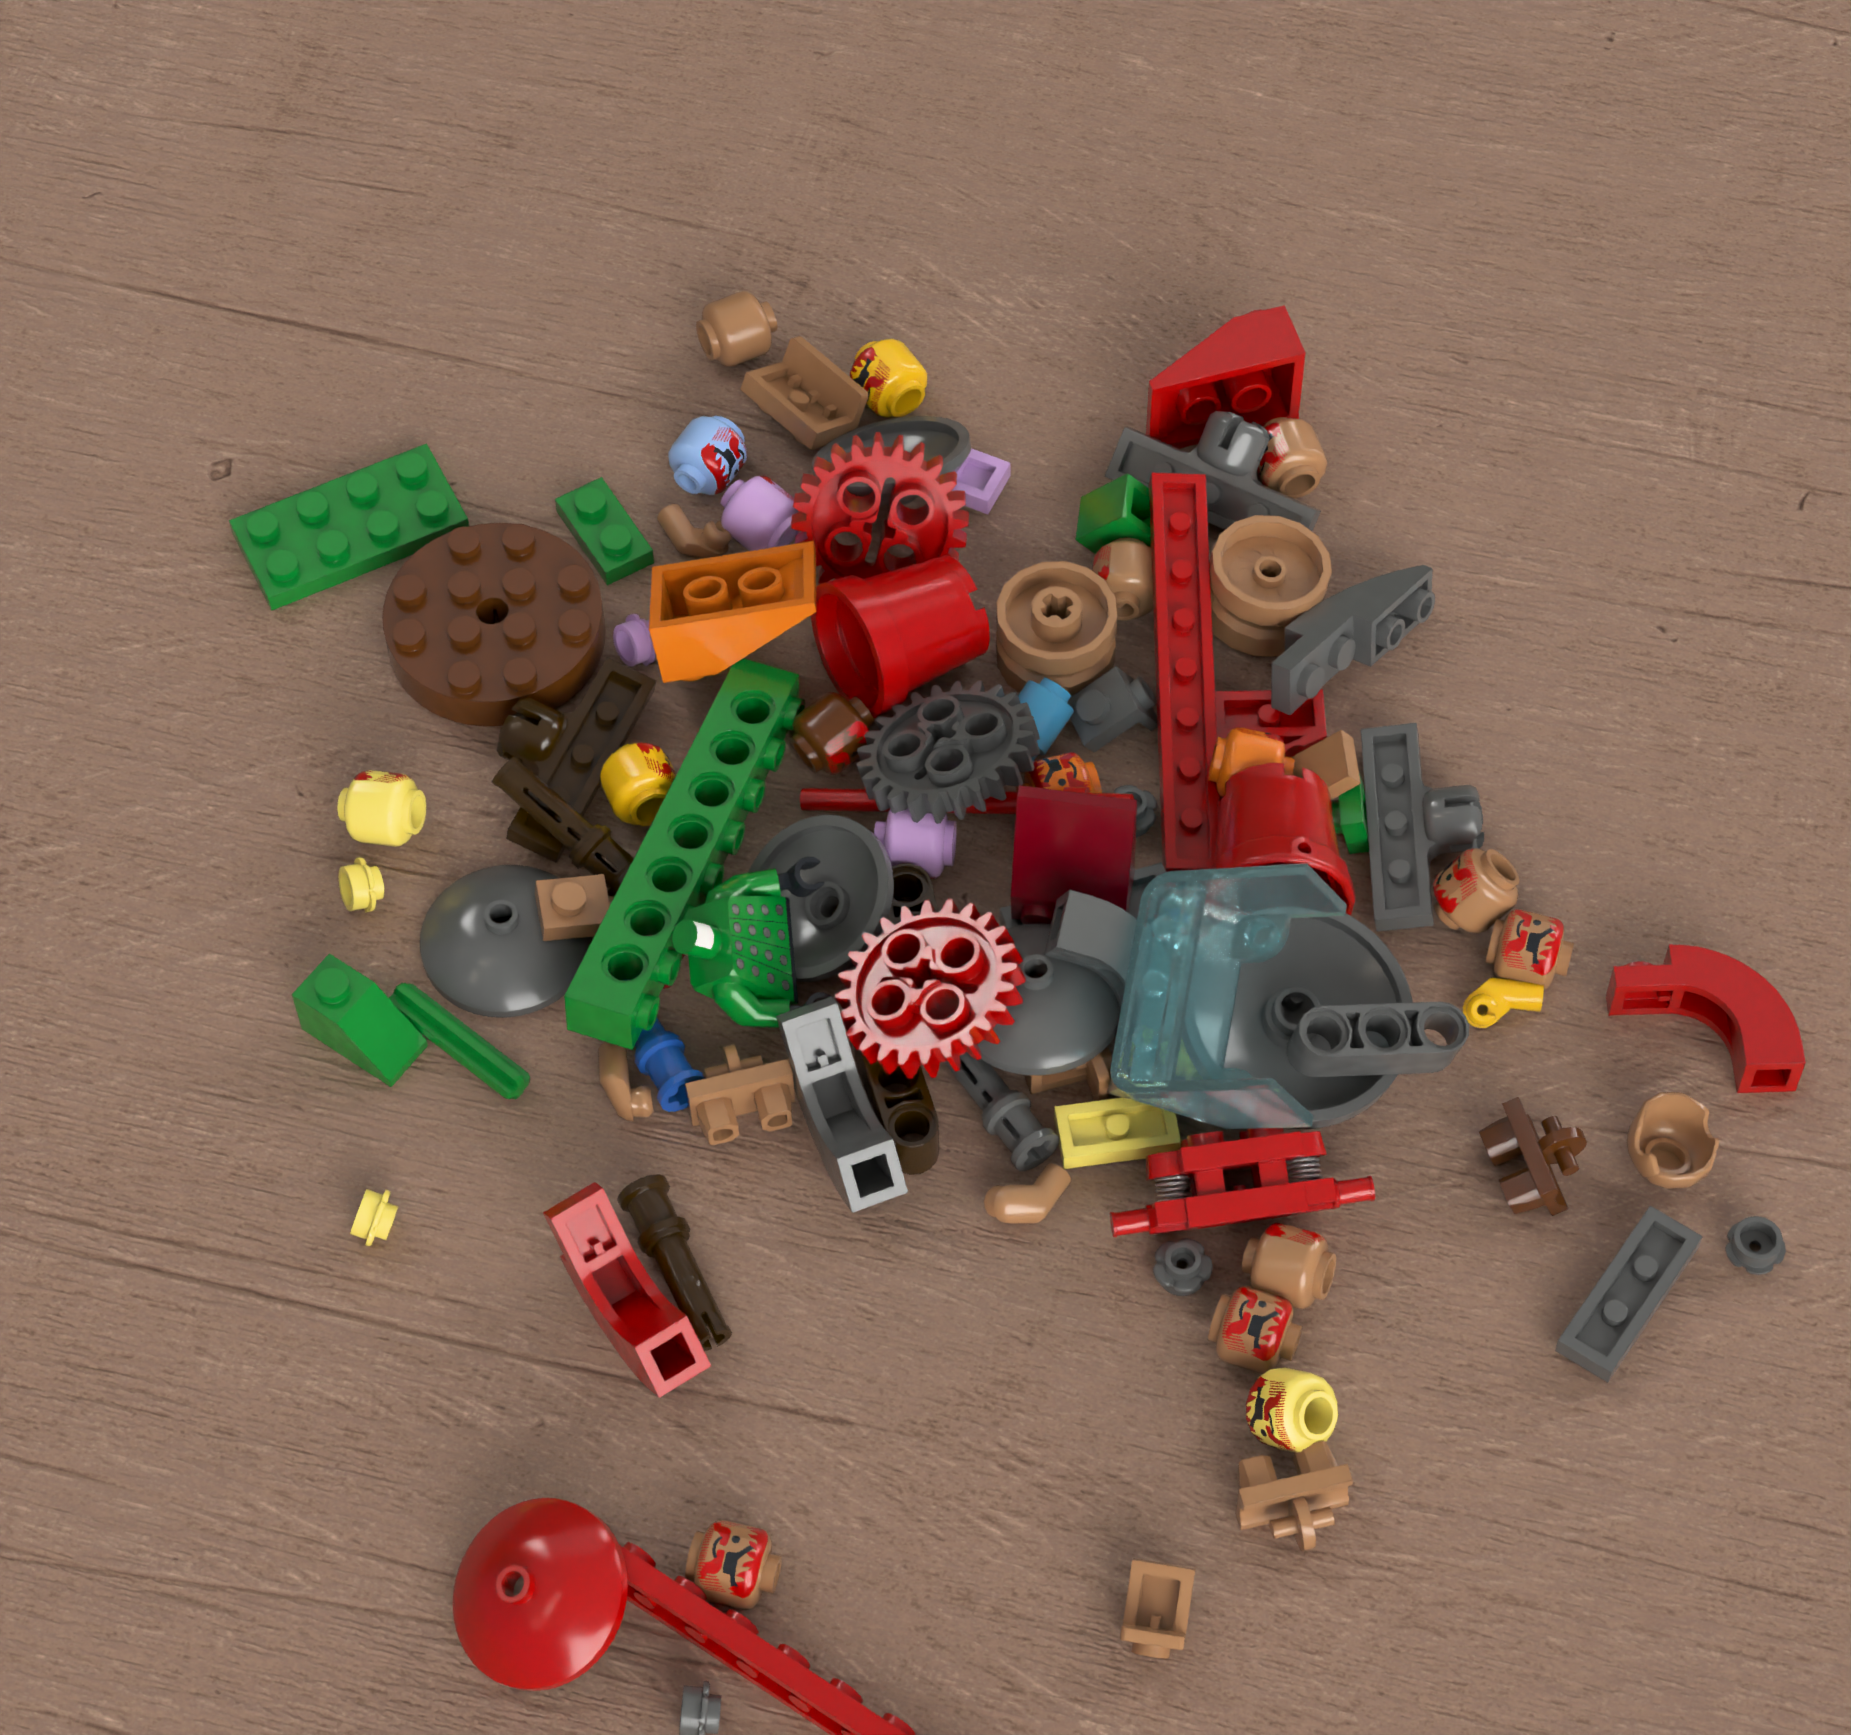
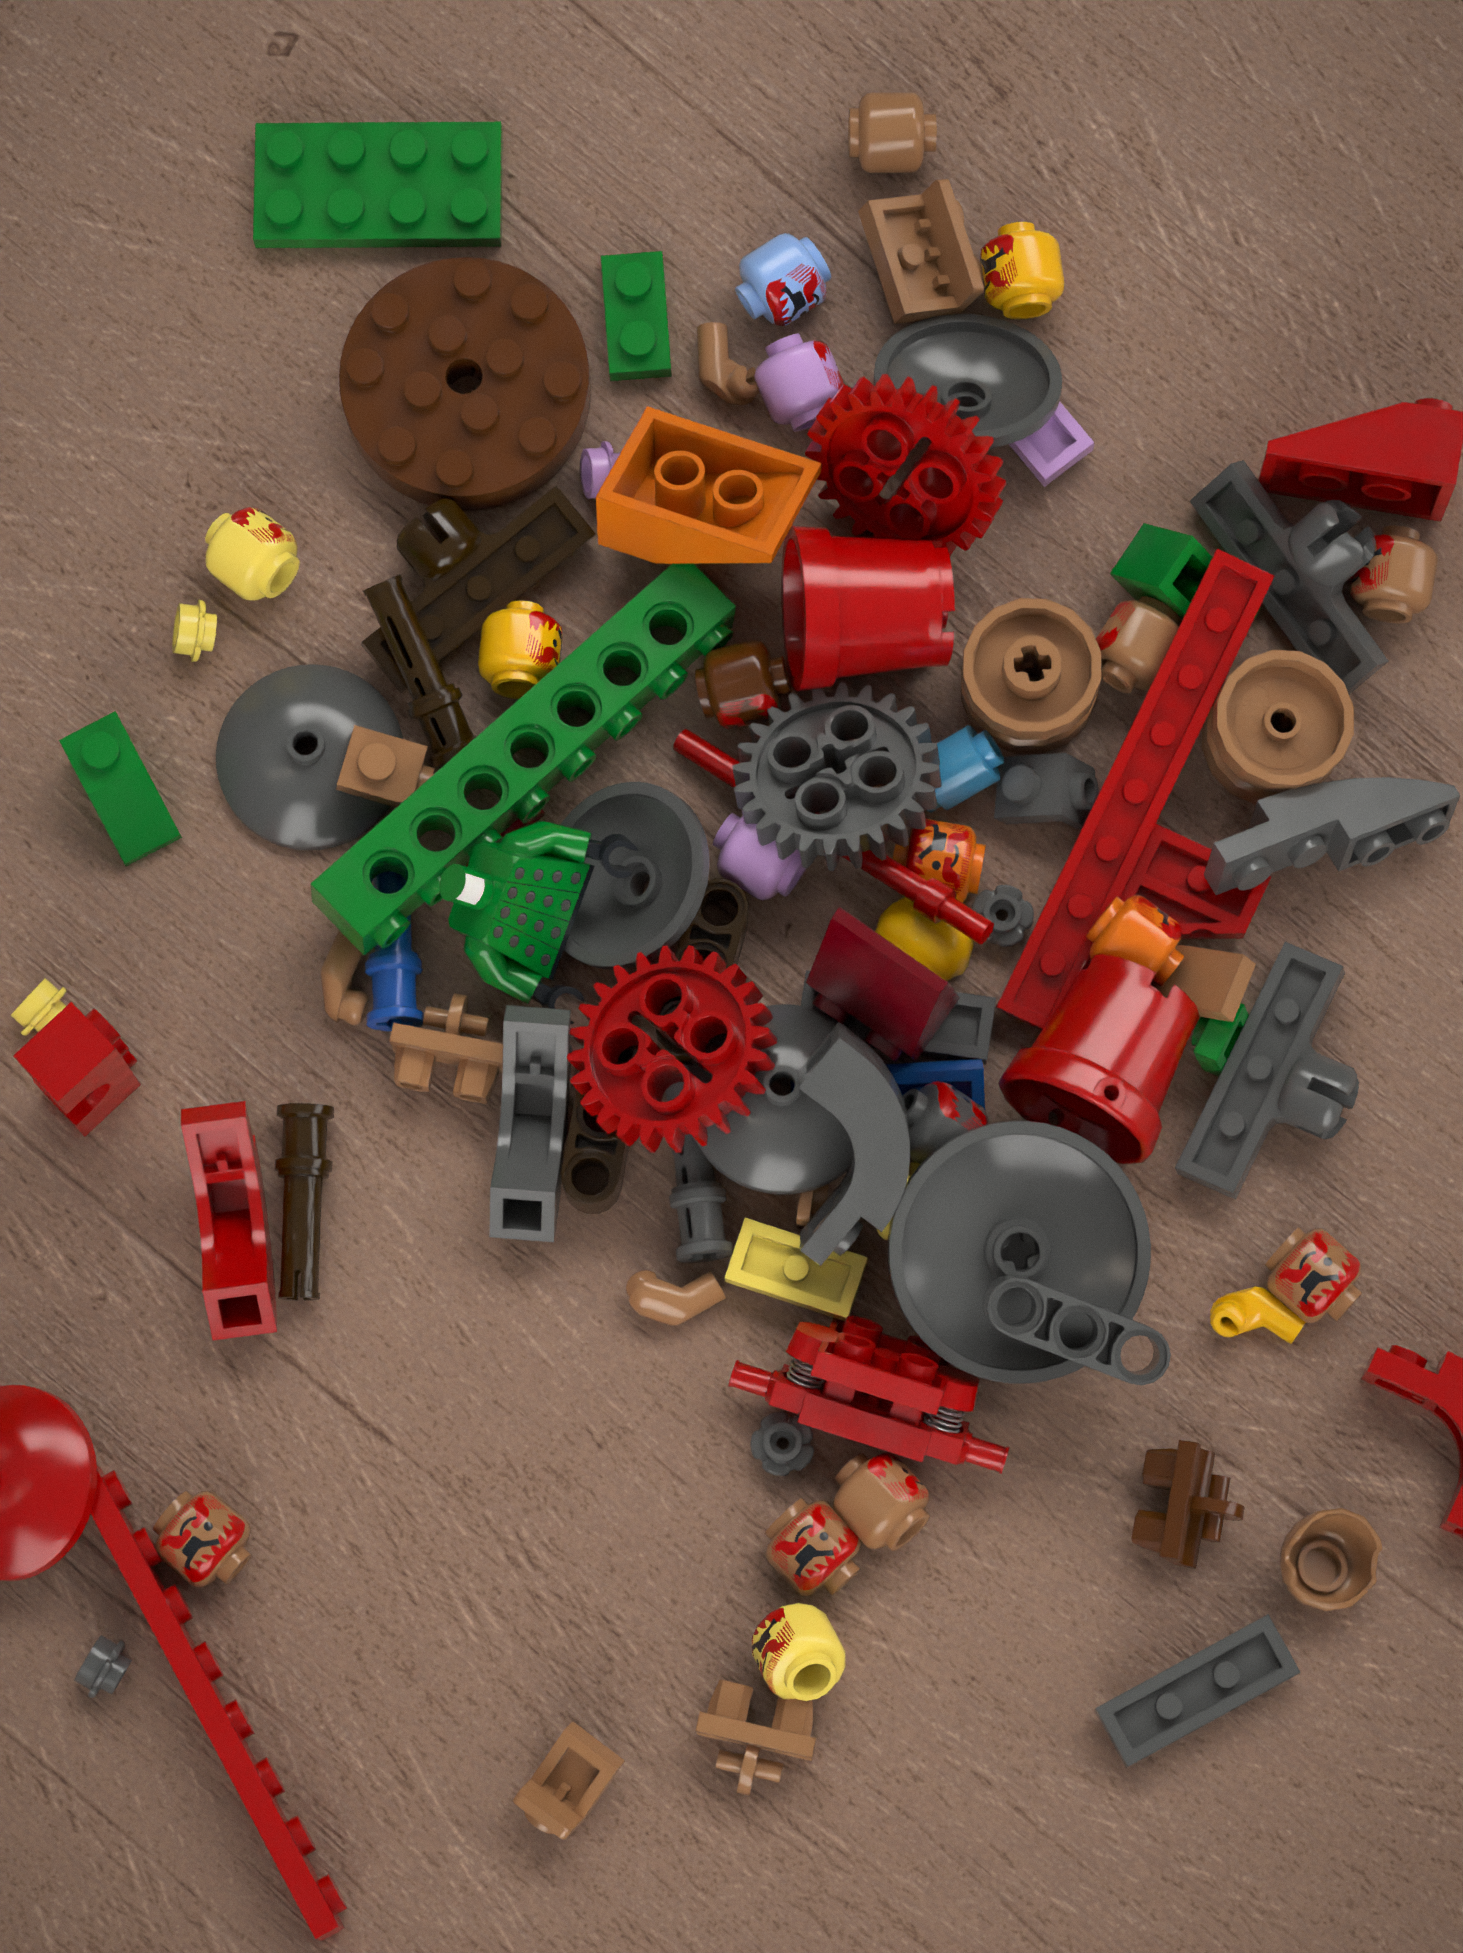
camera: 30 degrees right, 20 degrees up
(442, 1219) = (80, 1066): none -> red arch
(460, 1042) = (209, 852): green axle -> none
(1184, 988) = (900, 1201): clear light blue windscreen -> none
(1475, 890) = (1293, 1188): medium nougat head -> none
(1760, 1232) = (1350, 1684): dark grey plate -> none

